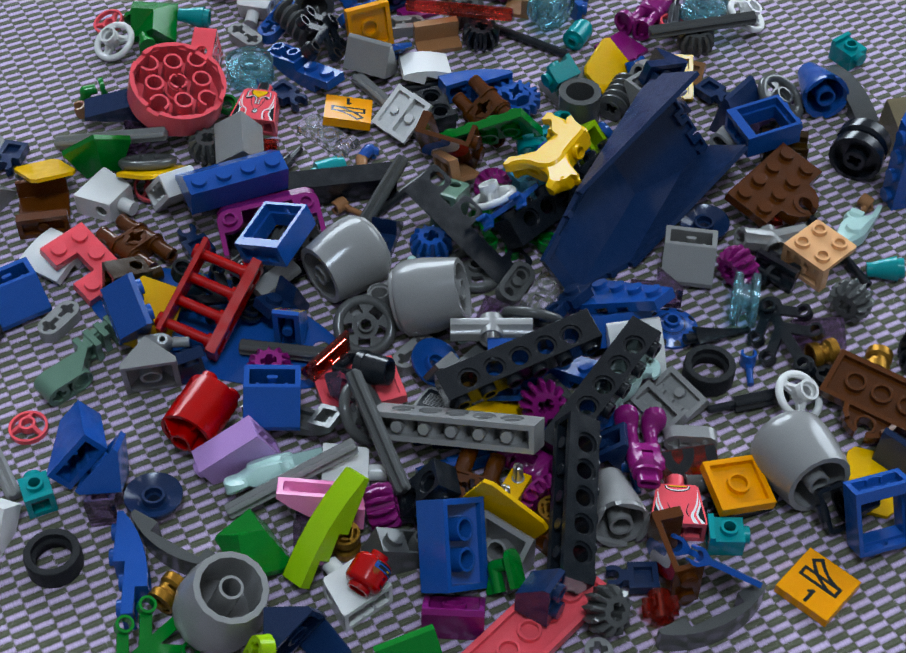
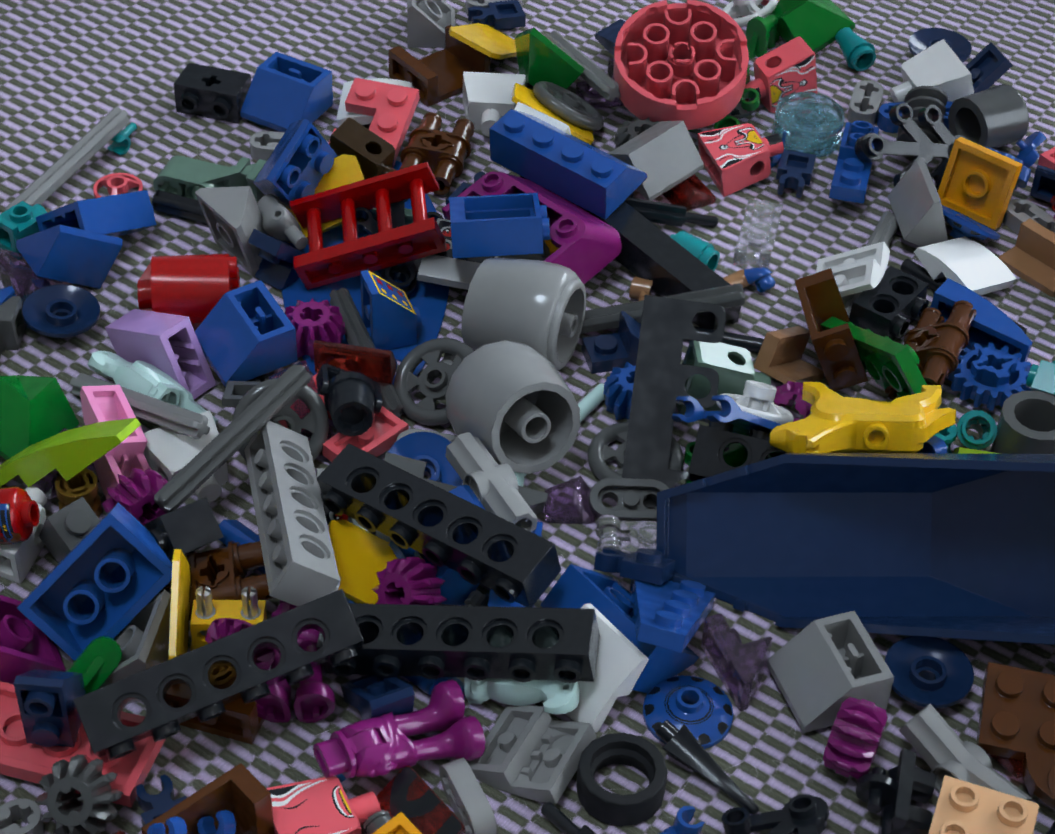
camera: 60 degrees right, 5 degrees down
(91, 390) = (178, 206): none -> black axle
(285, 296) = (437, 301): dark blue slope -> none
(347, 112) = (808, 230): light orange tile -> none
(540, 317) = (562, 529): dark grey plate -> none
(619, 510) = (273, 740): light grey cone -> none
(745, 299) = (782, 762): clear light blue wheel -> none

